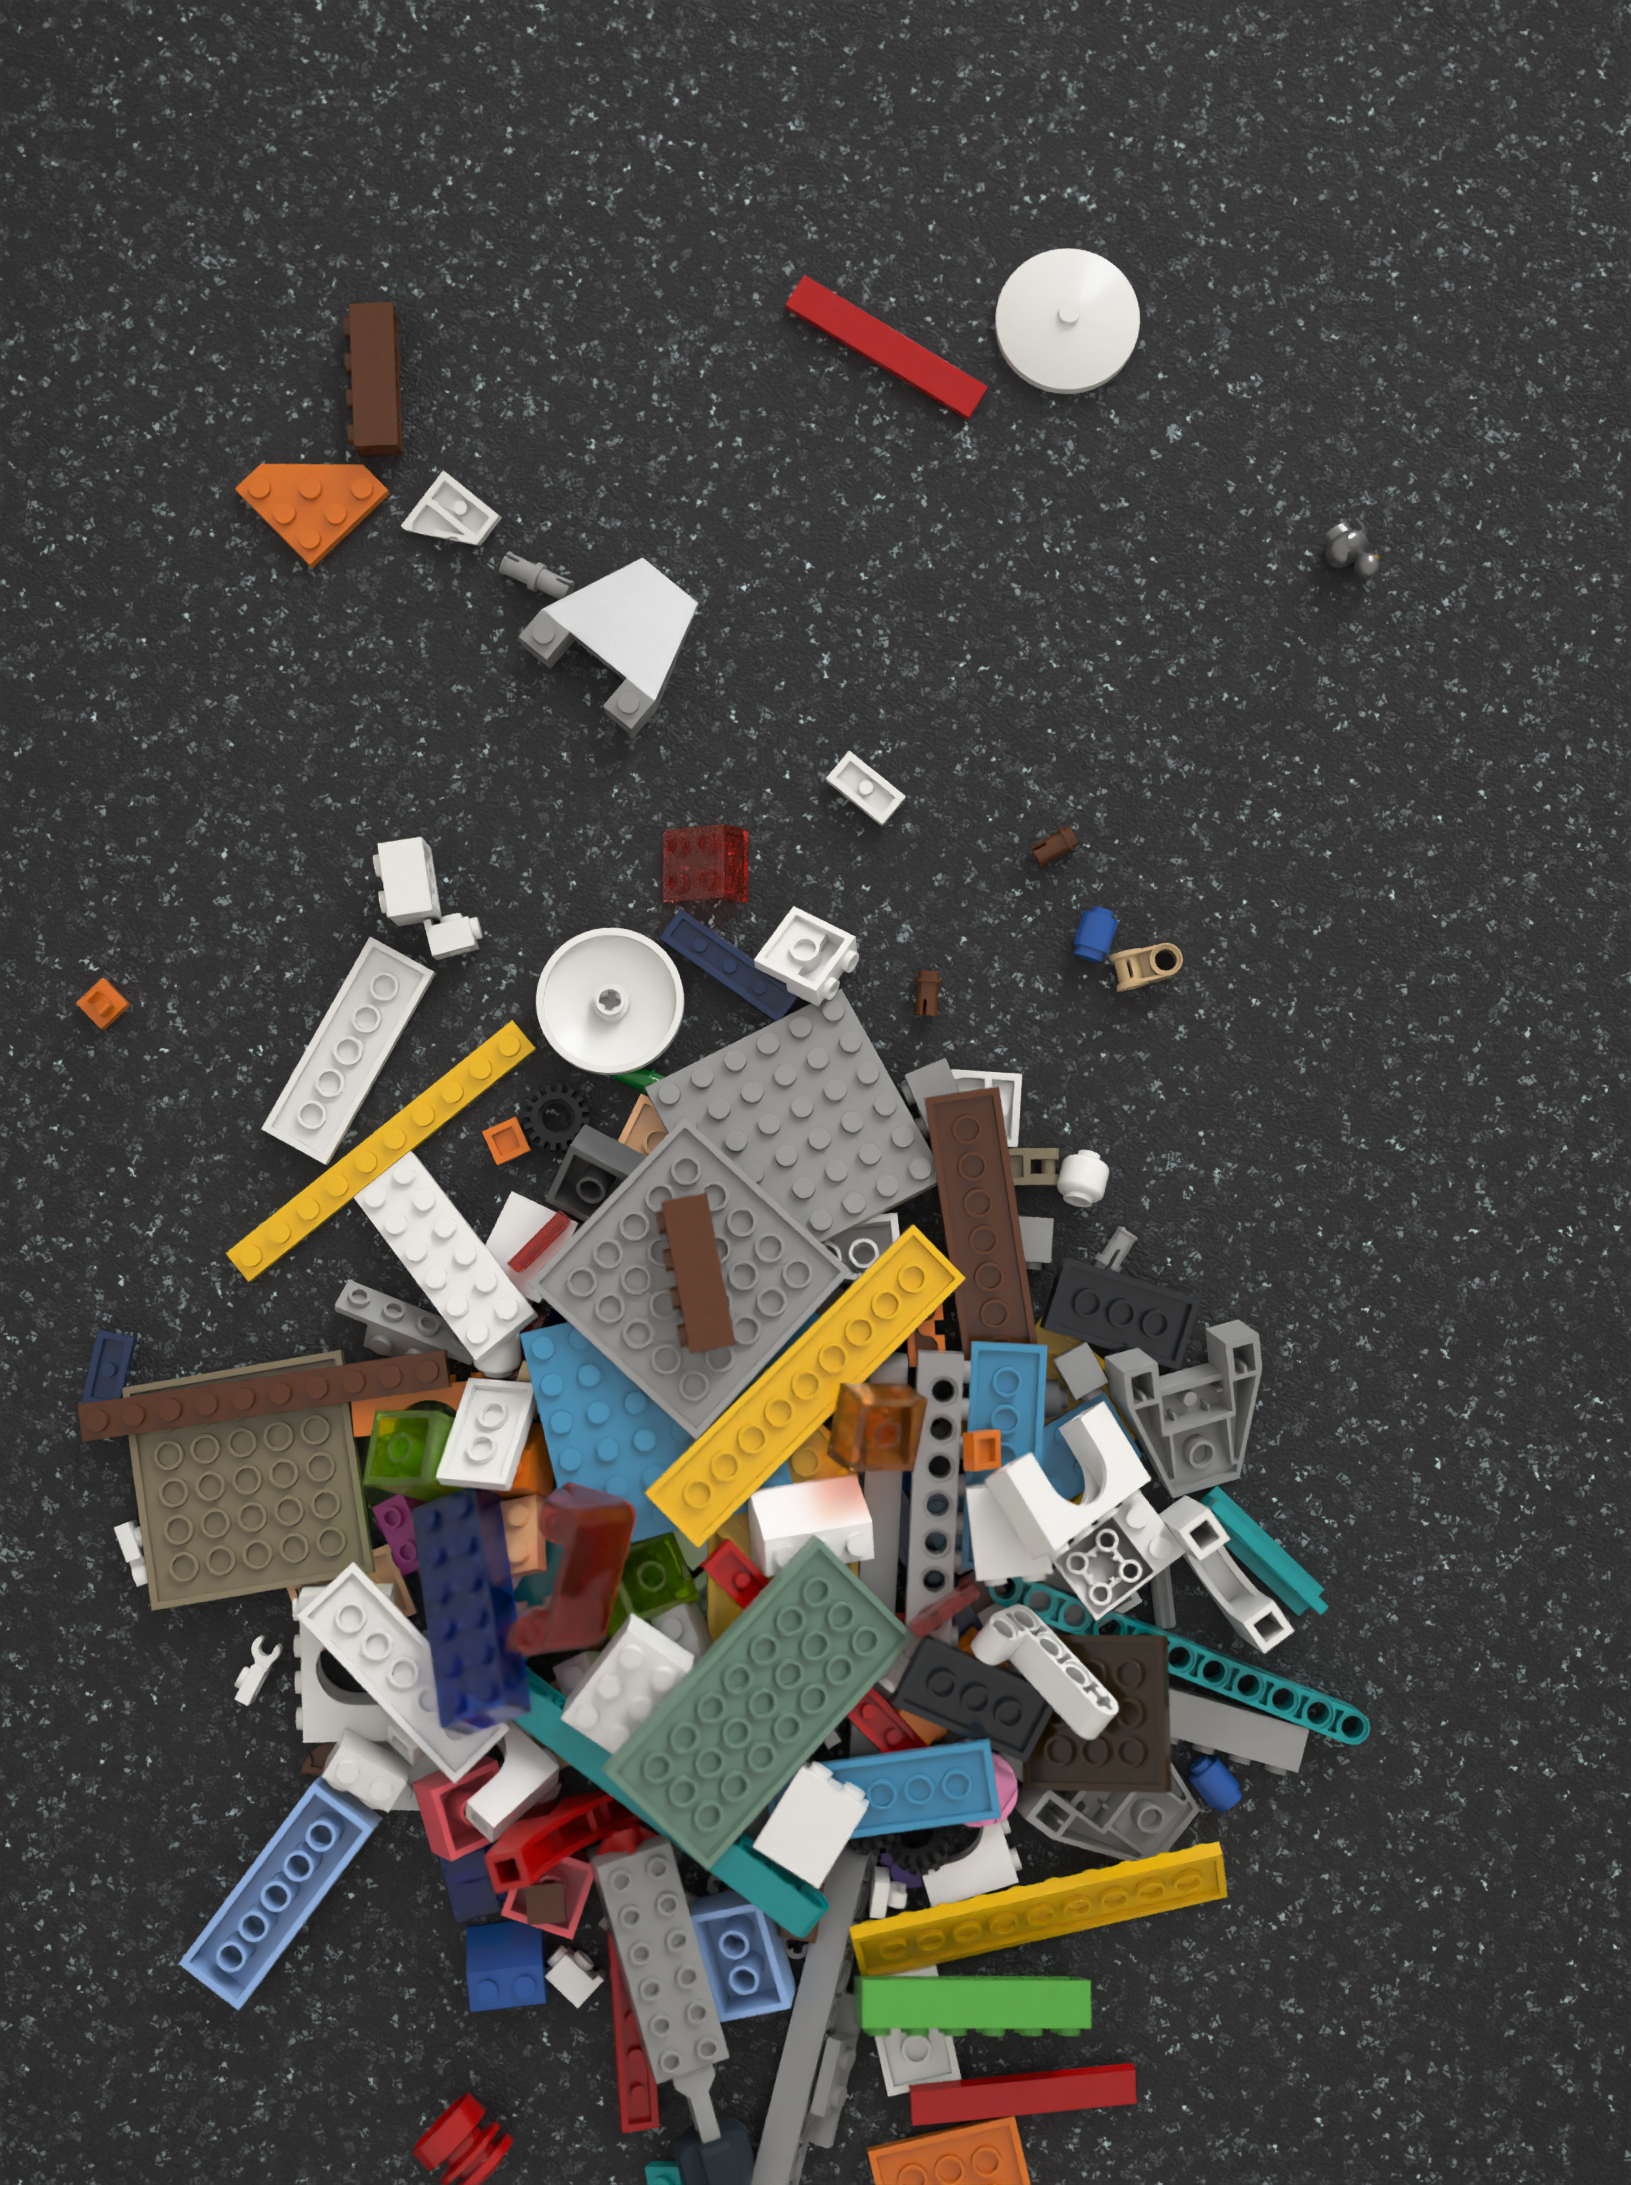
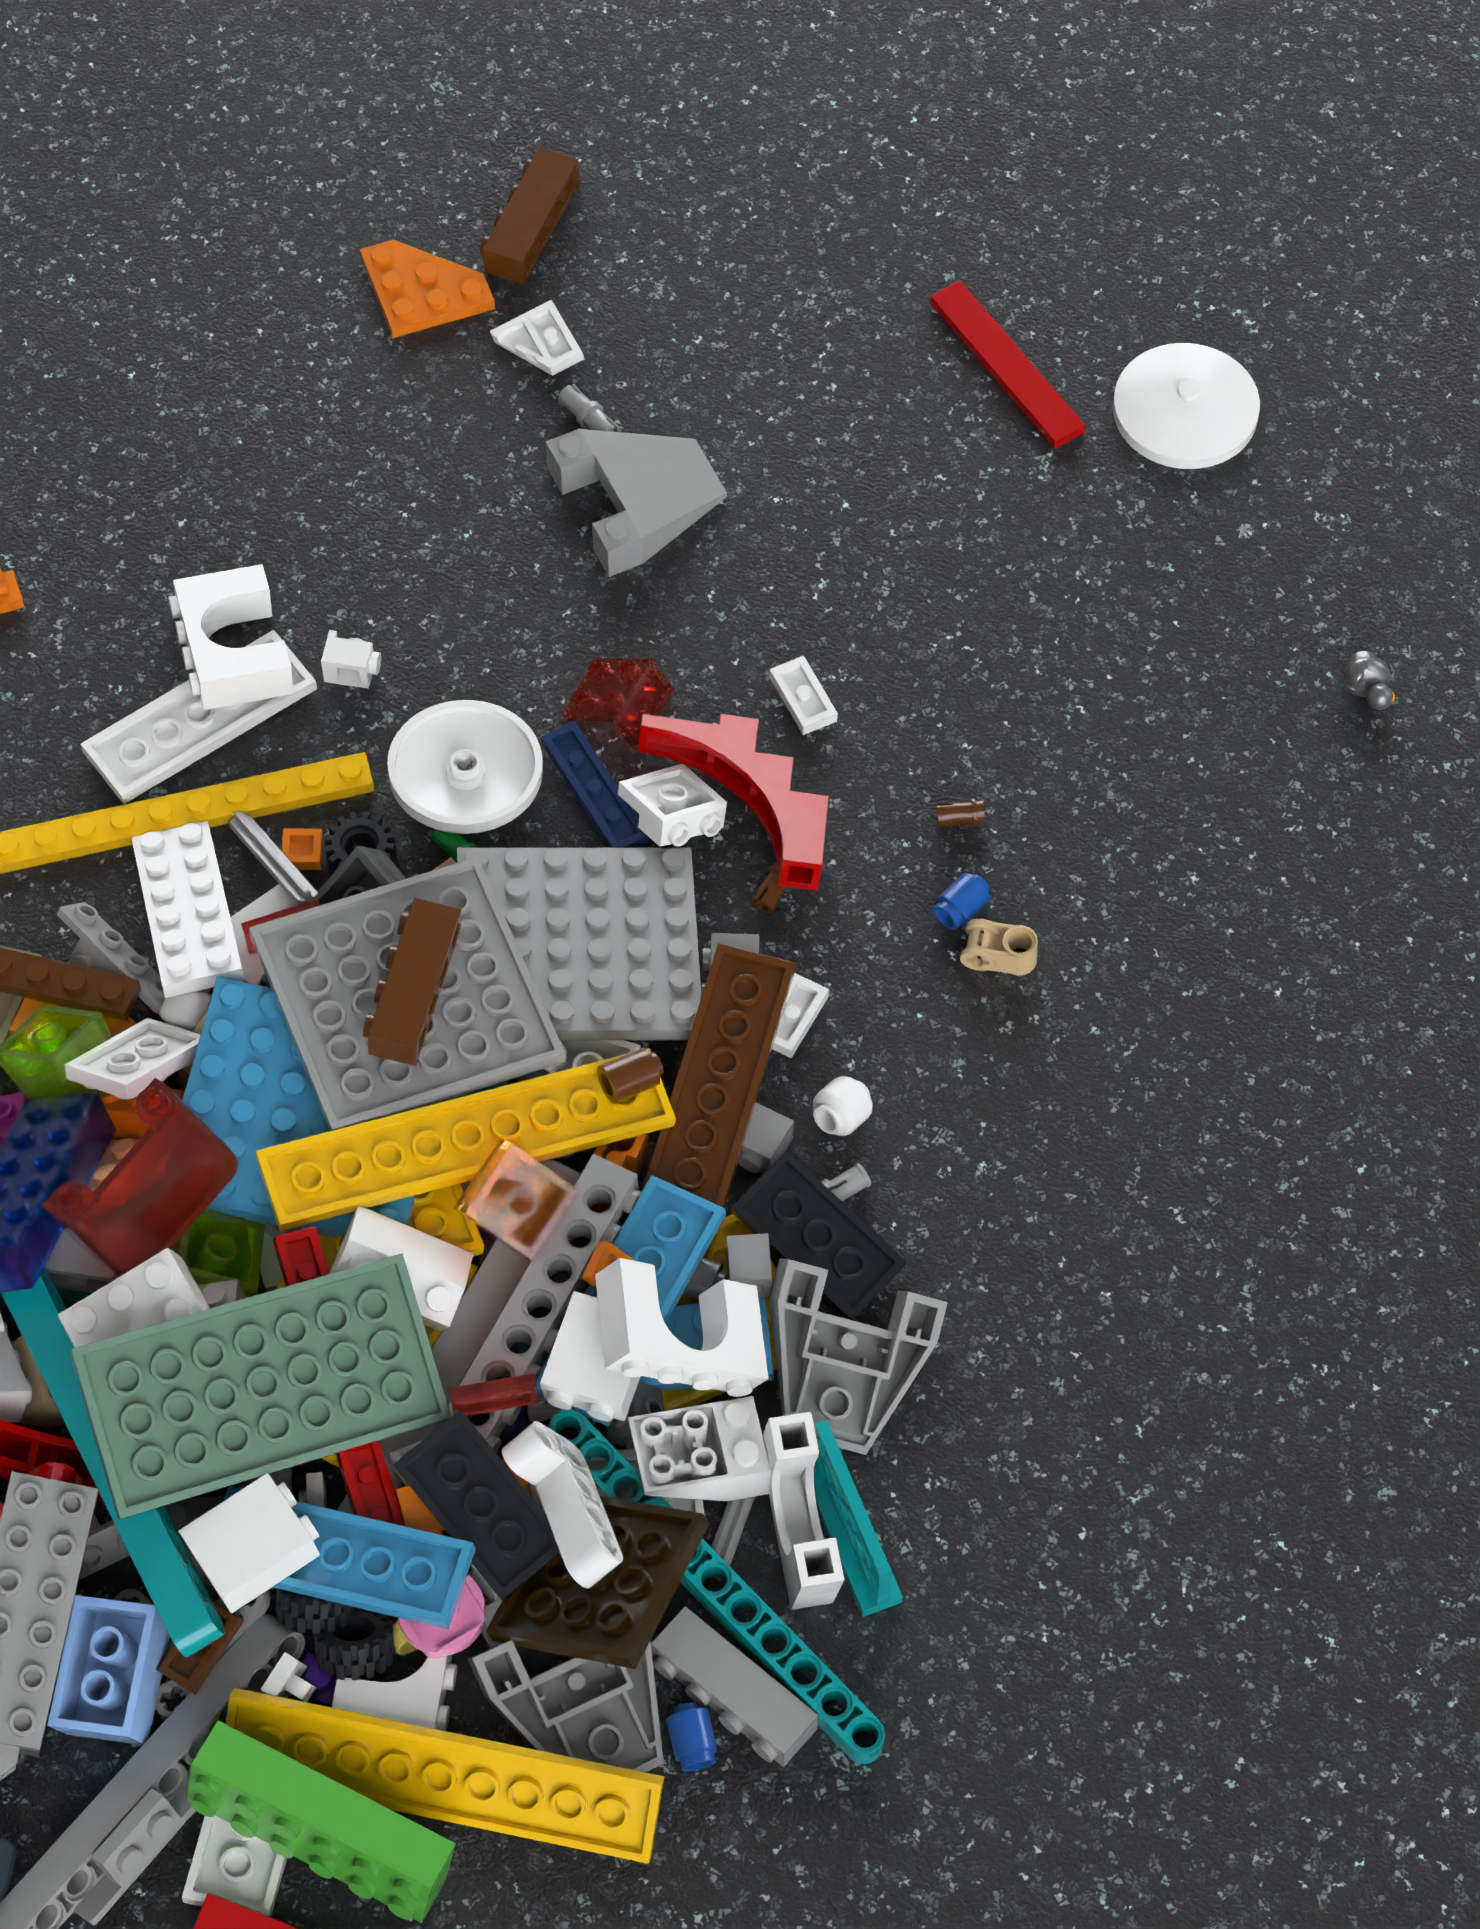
camera: 25 degrees right, 25 degrees down
(355, 1012) = (223, 673): none -> white arch
(408, 881) = (333, 591): white brick -> none
(491, 1169) = (272, 858): none -> light grey axle
(877, 898) = (760, 779): none -> arch
(915, 1266) = (630, 1075): none -> reddish brown brick
(1021, 1166) = (783, 1070): dark tan plate -> none

